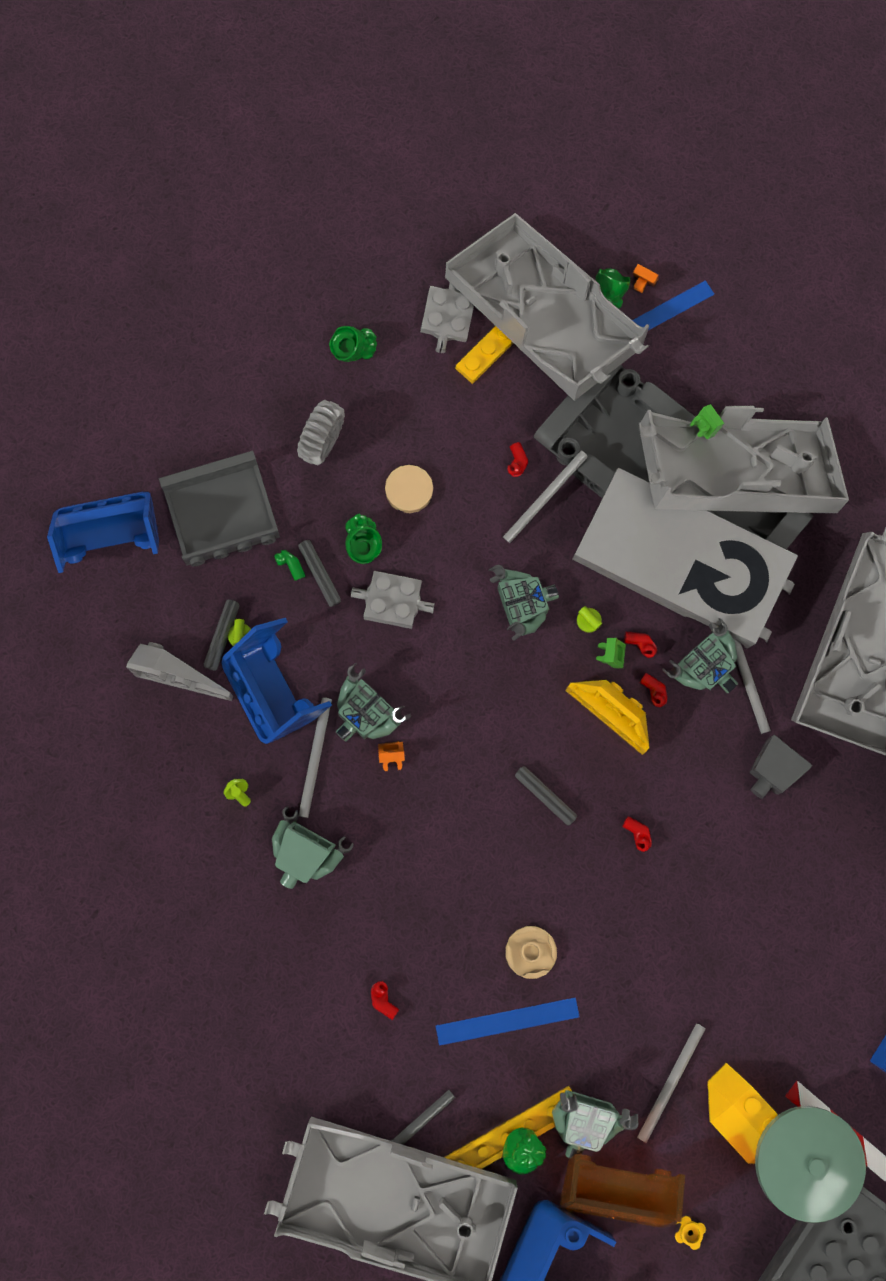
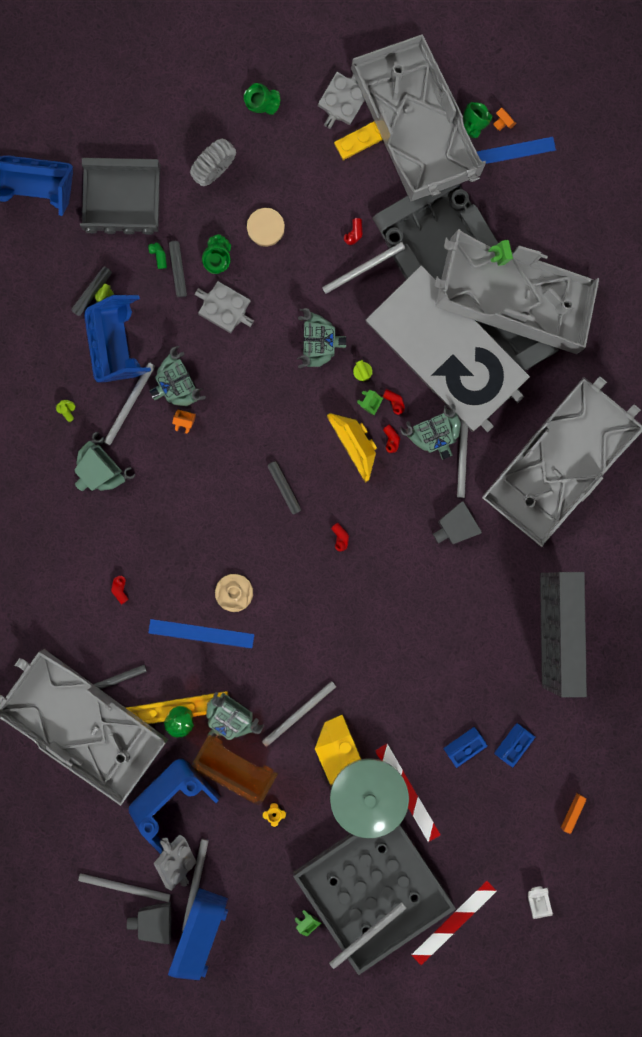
camera: 25 degrees right, 10 degrees up
(160, 666) = (40, 300): light grey wedge -> none

